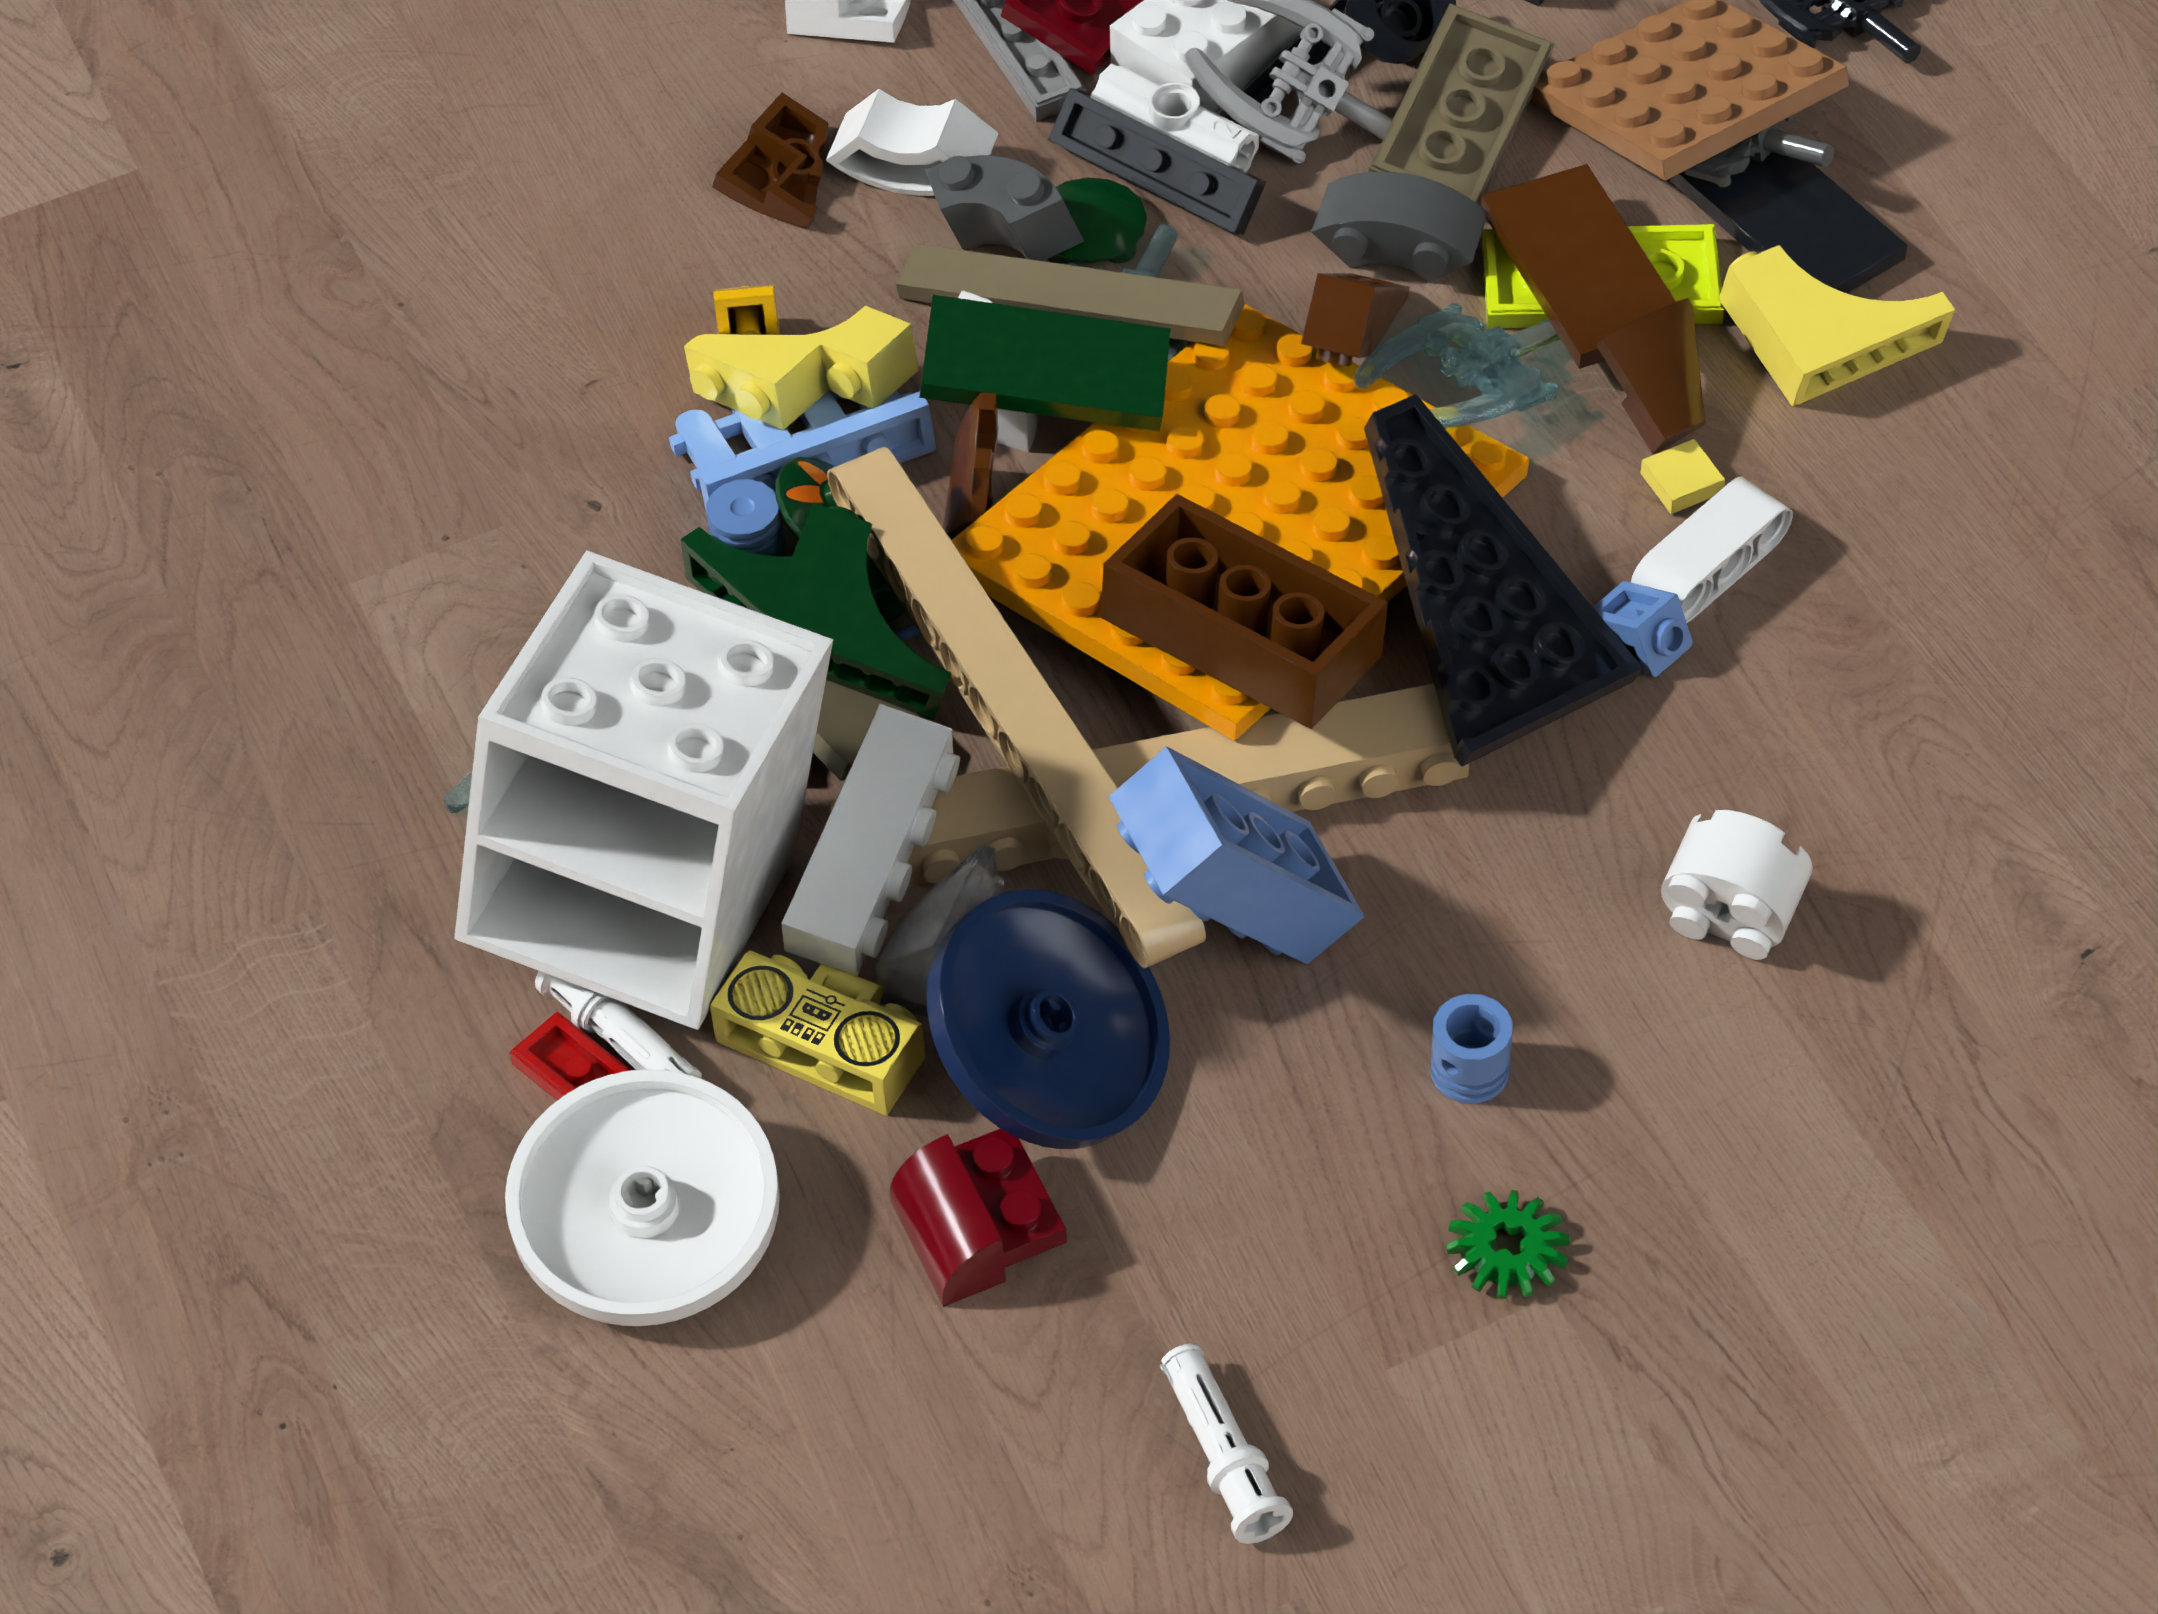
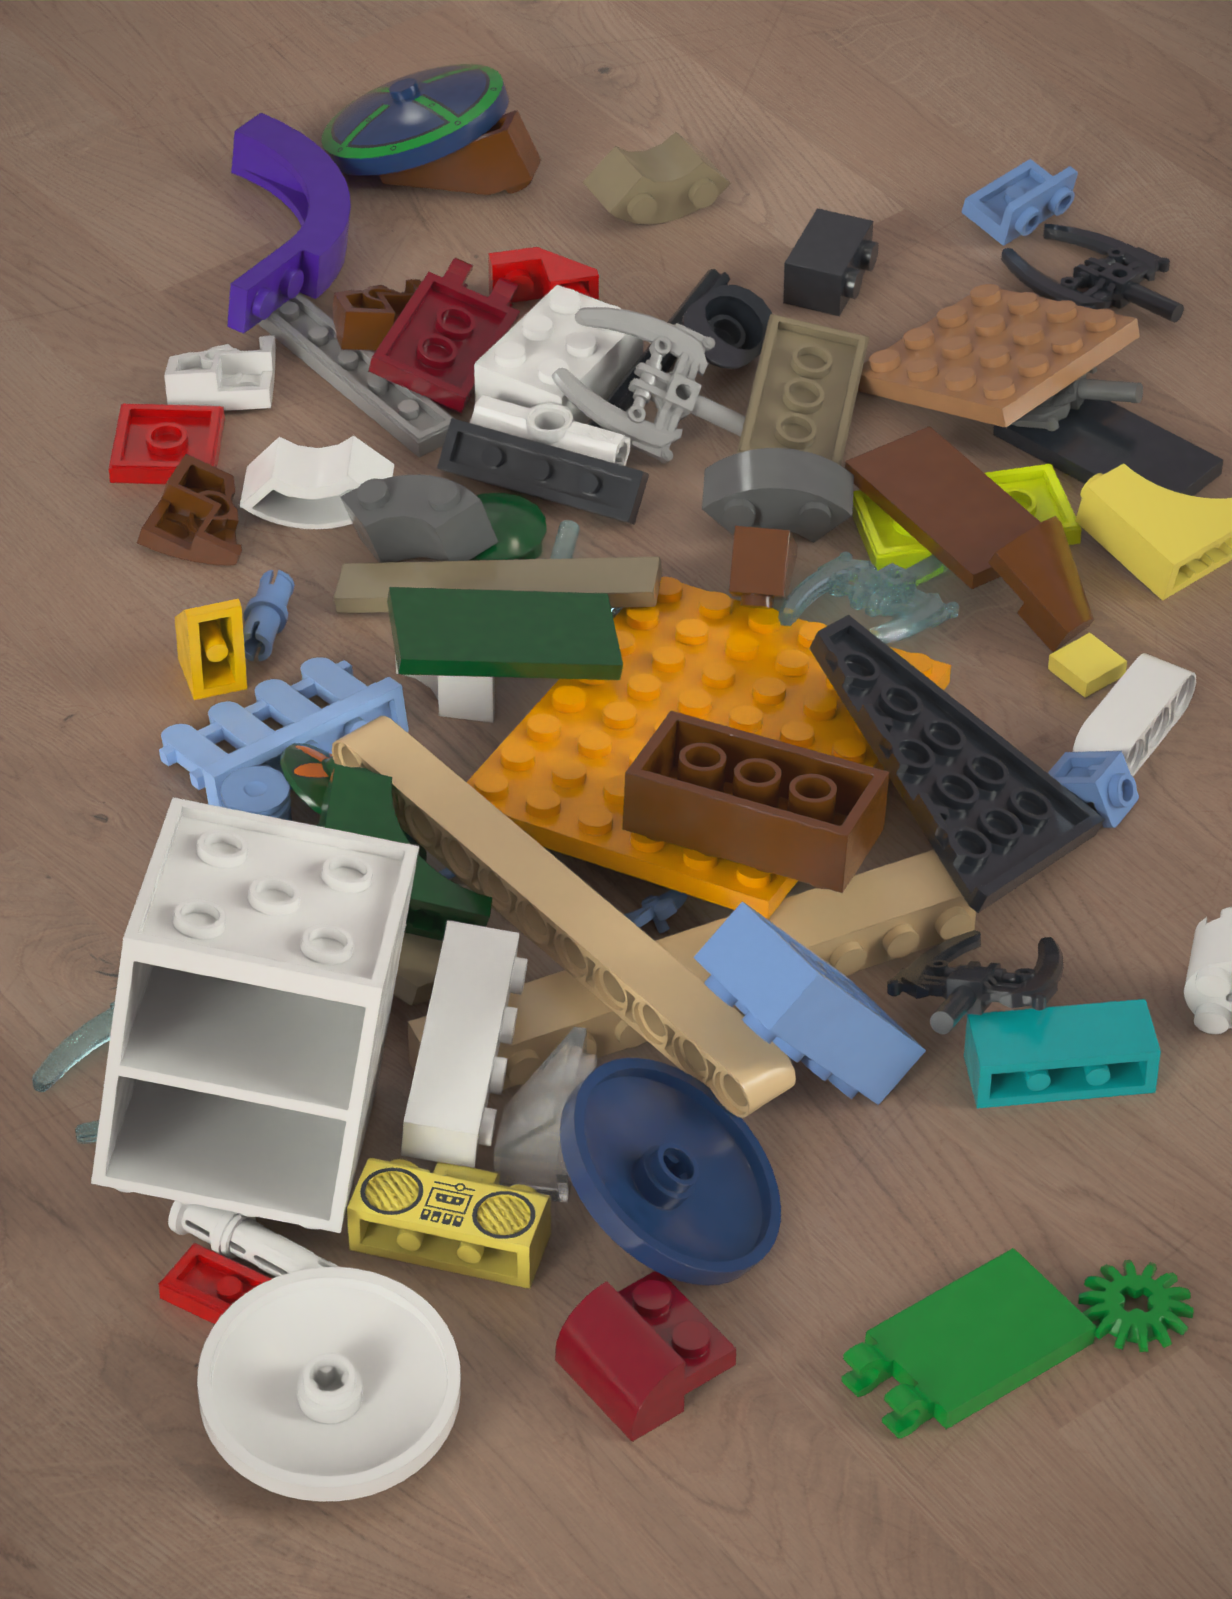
camera: 15 degrees left, 10 degrees down
(769, 60) = (157, 436): none -> red tile
(786, 374) = (259, 679): light yellow arch -> none
(821, 291) = (266, 614): none -> medium blue pin
(972, 465) = (454, 722): reddish brown slope -> none
(1133, 700) = (658, 909): none -> medium blue plant
(1235, 1467) = (950, 1529): white pin -> none
(1317, 1258) = (968, 1344): none -> green tile
(1434, 851) = (974, 987): none -> black bar
(1471, 1048) = (1053, 1149): medium blue piece -> none
(1512, 940) = (1061, 1053): none -> teal brick

